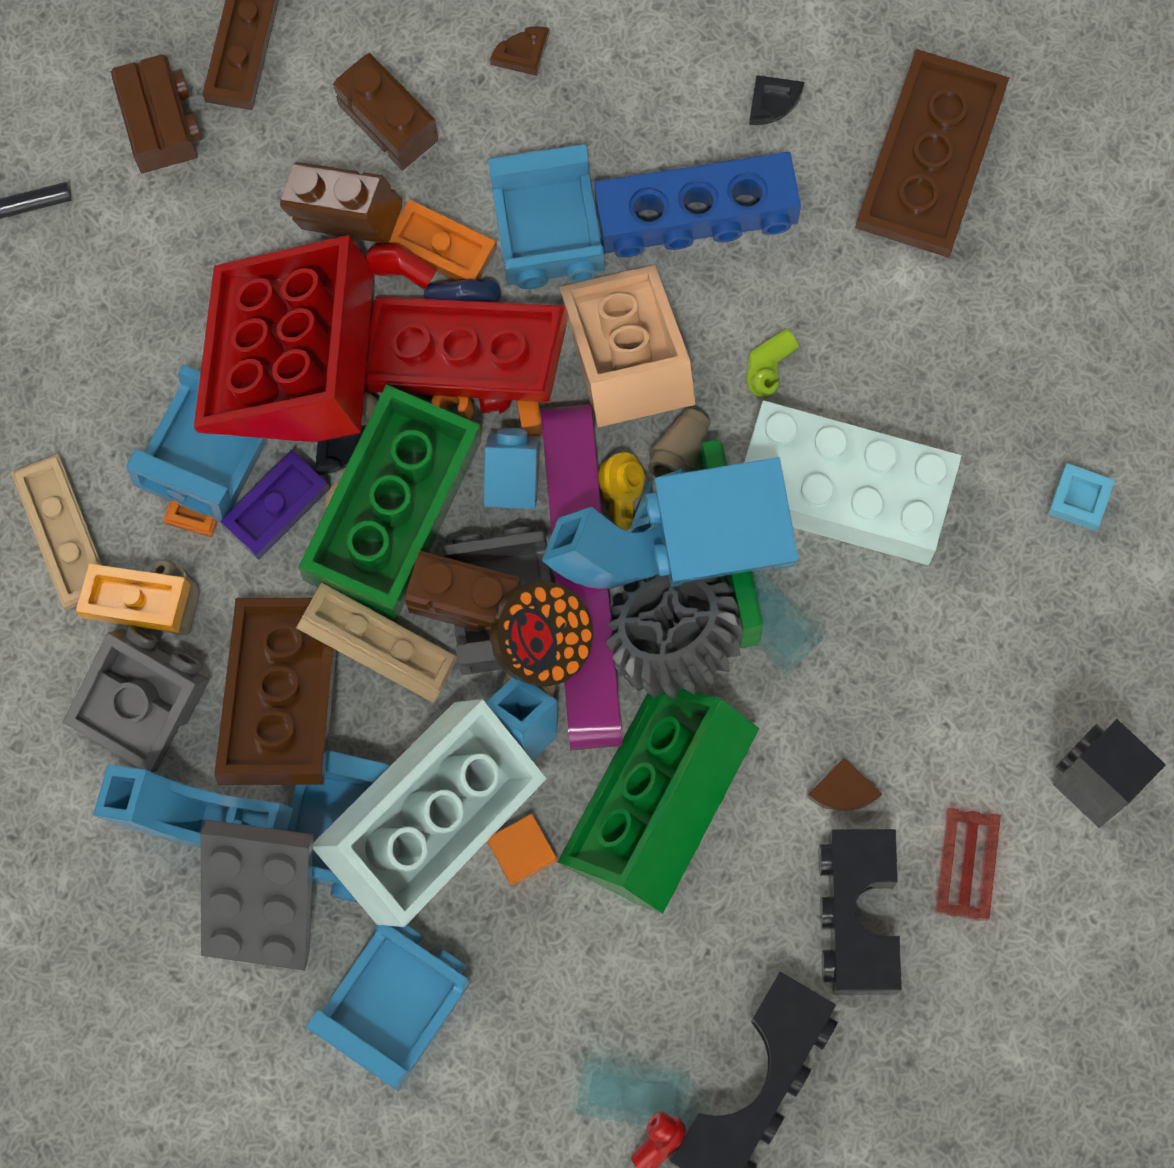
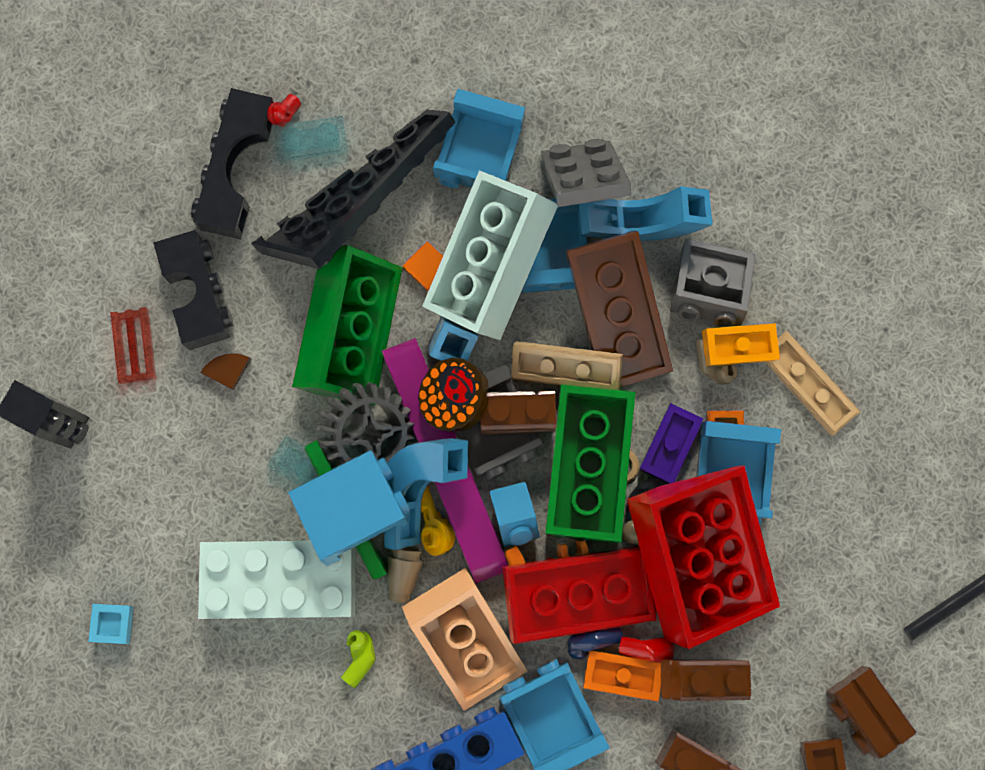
camera: 160 degrees right, 5 degrees up
(602, 969) = (352, 197): none -> black wing

